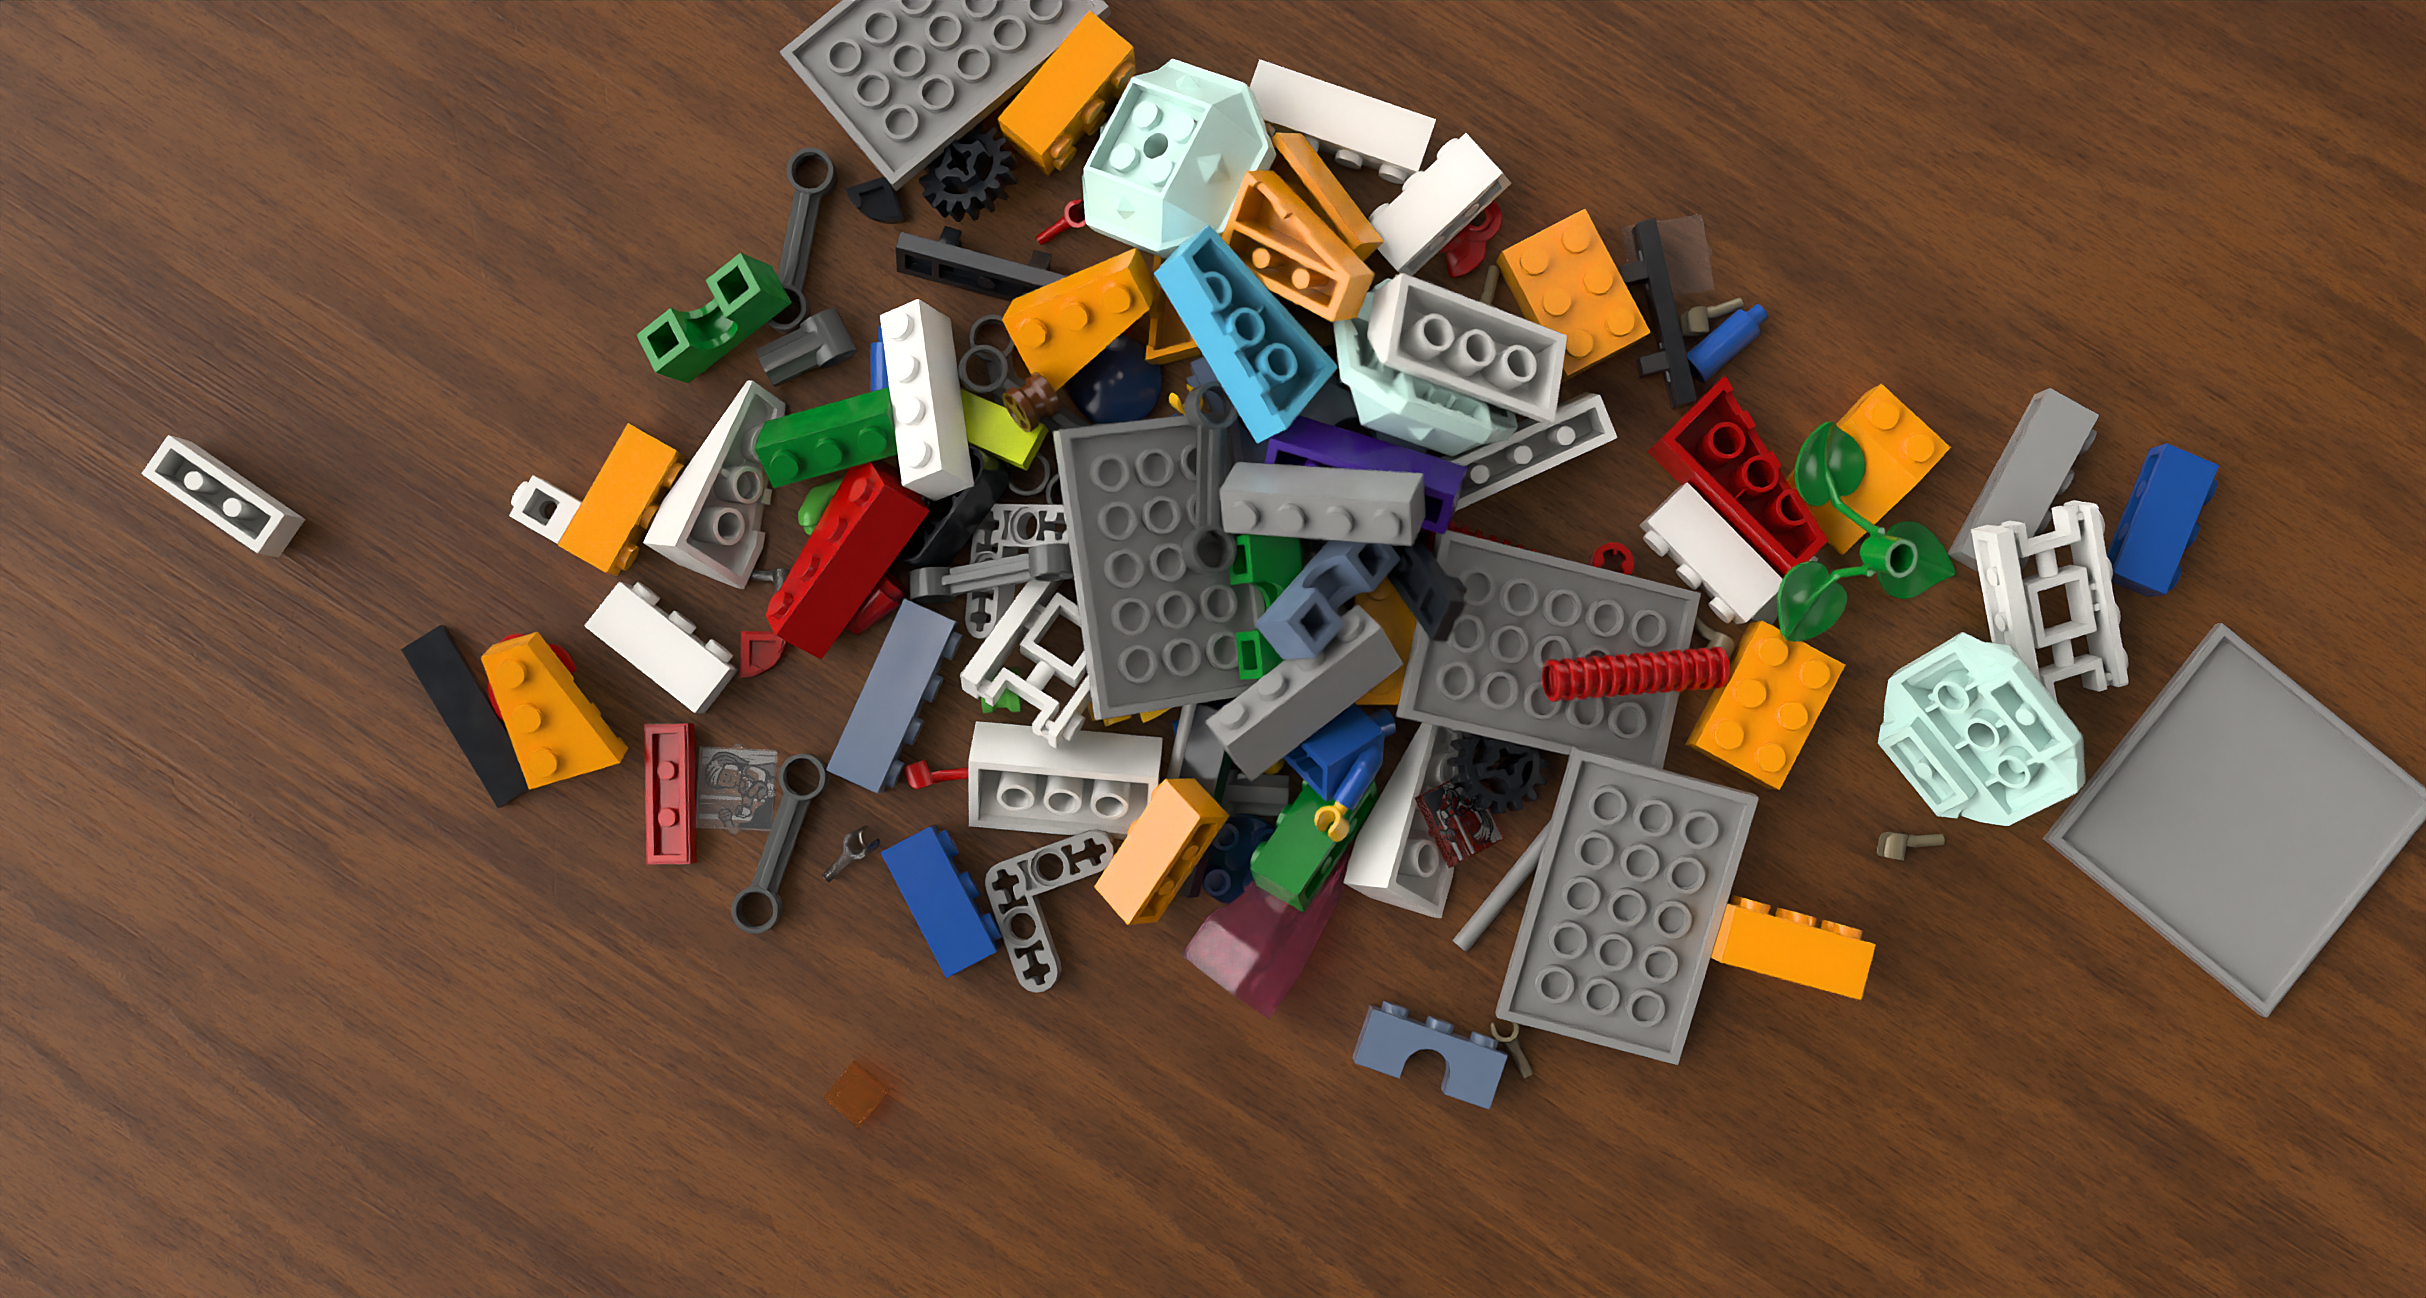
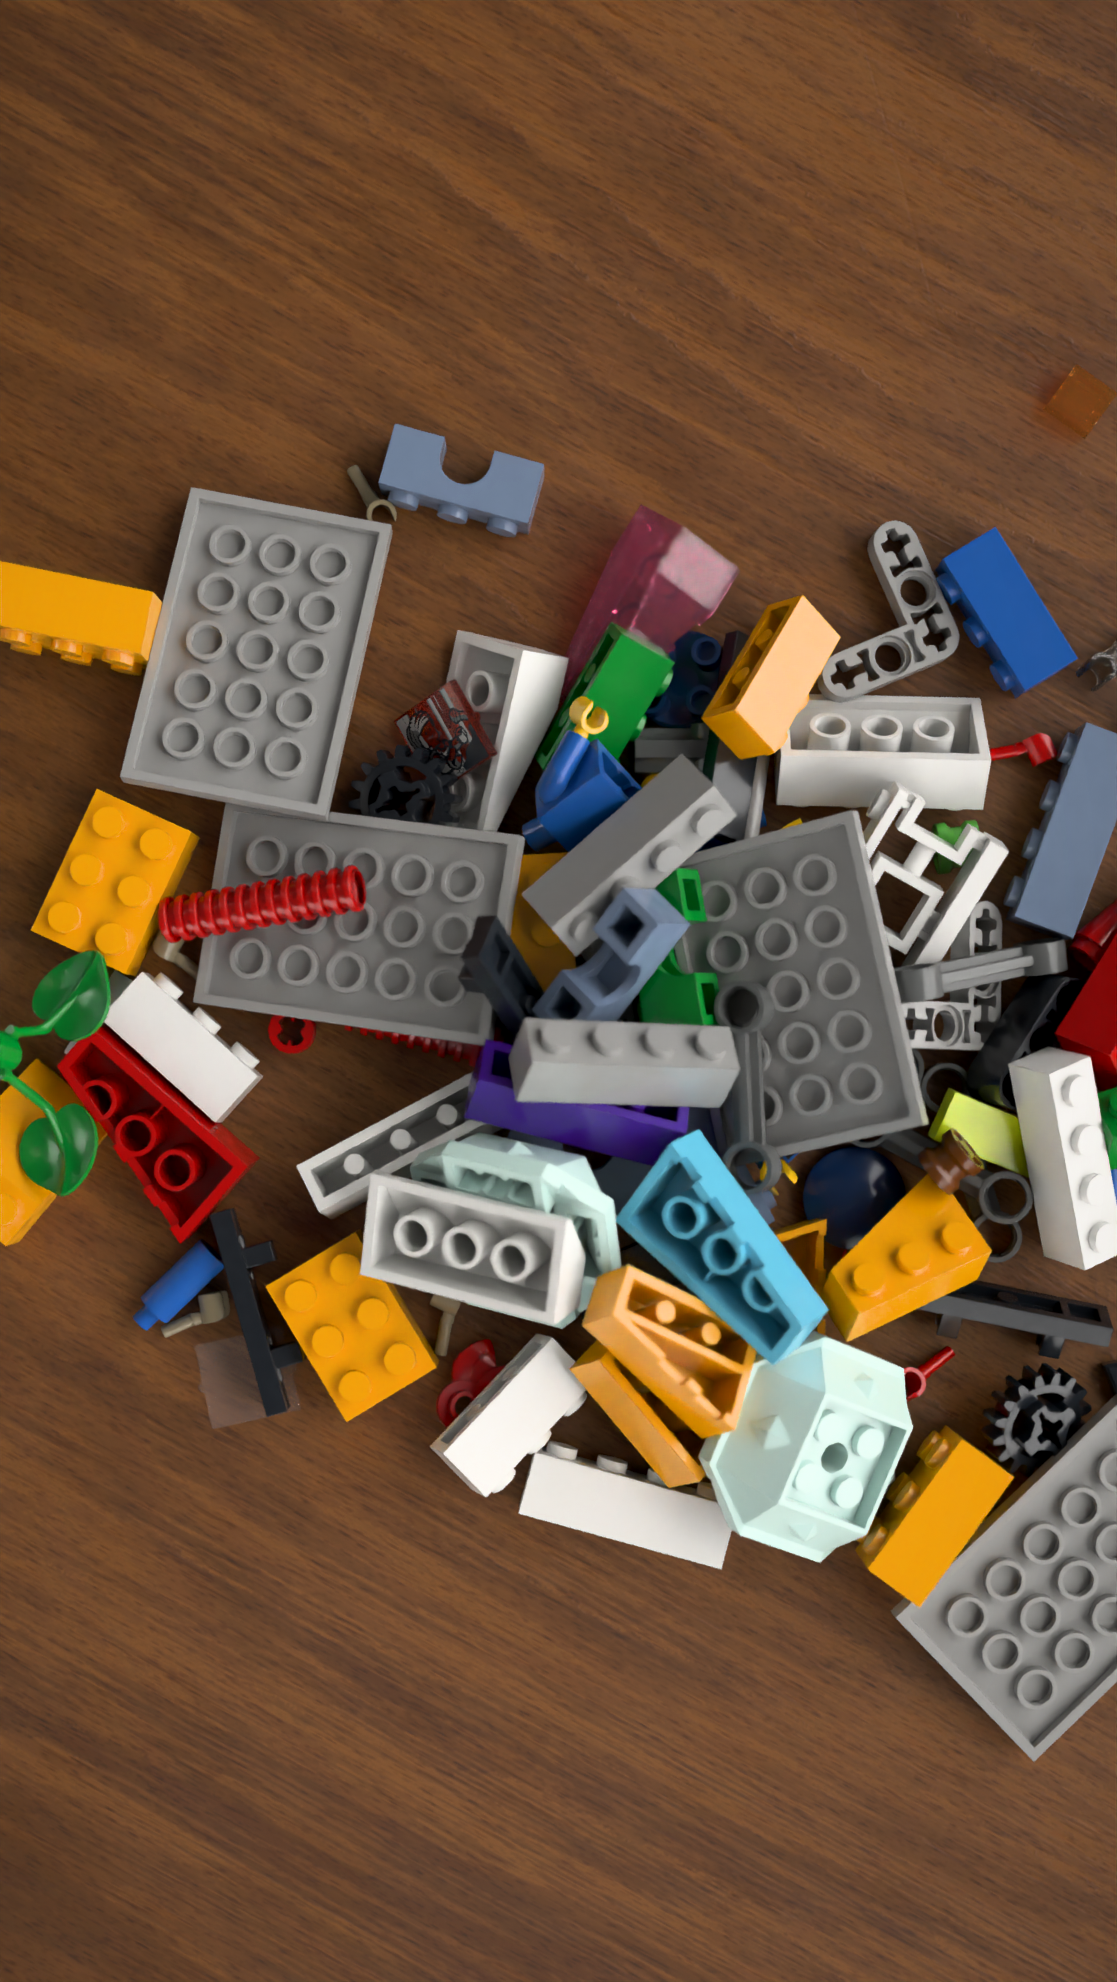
camera: 175 degrees right, 0 degrees up
(1502, 893) = (393, 660): light grey bar -> none

